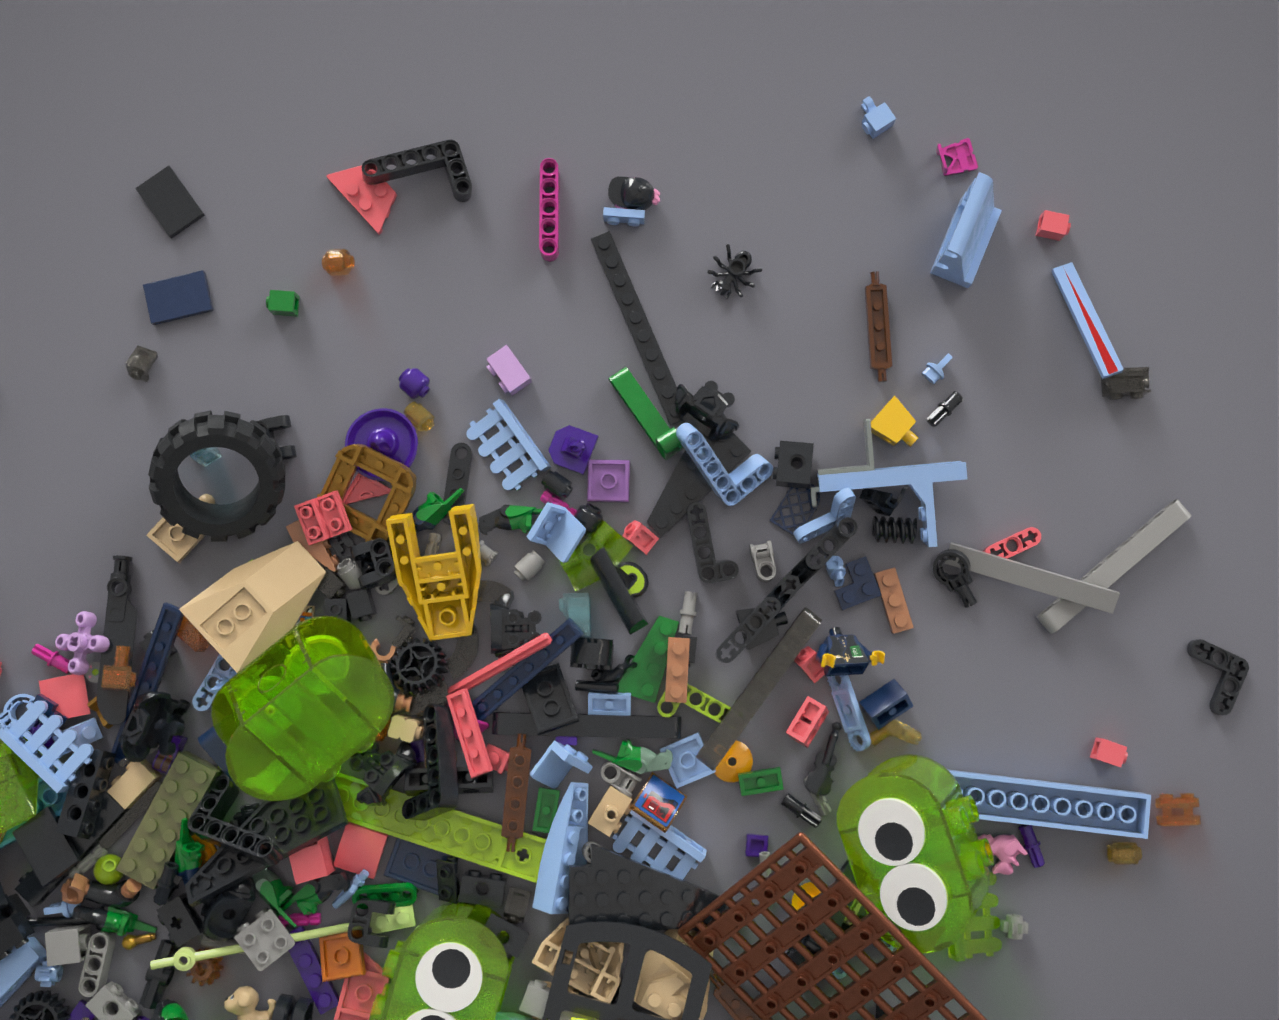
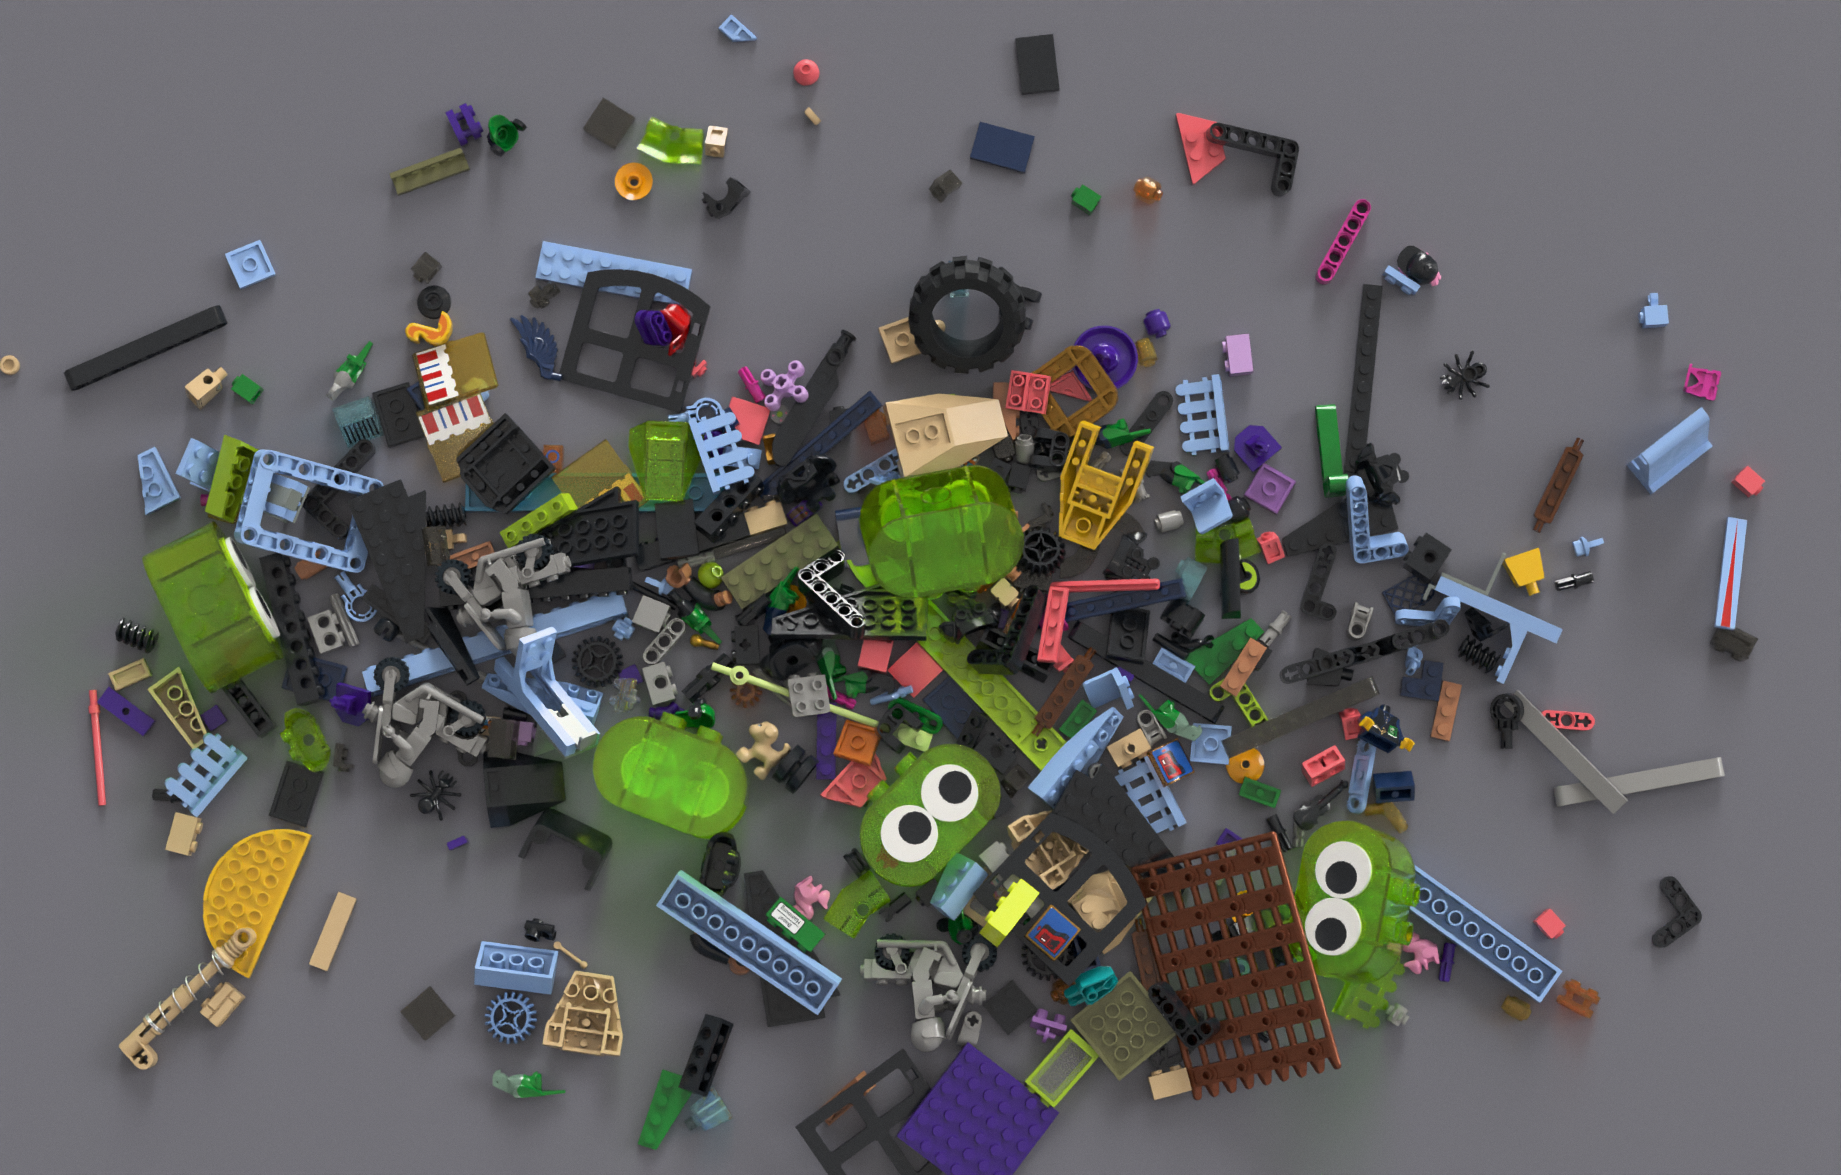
camera: 25 degrees right, 0 degrees up
(120, 675) = (805, 428): clear orange brick -> none

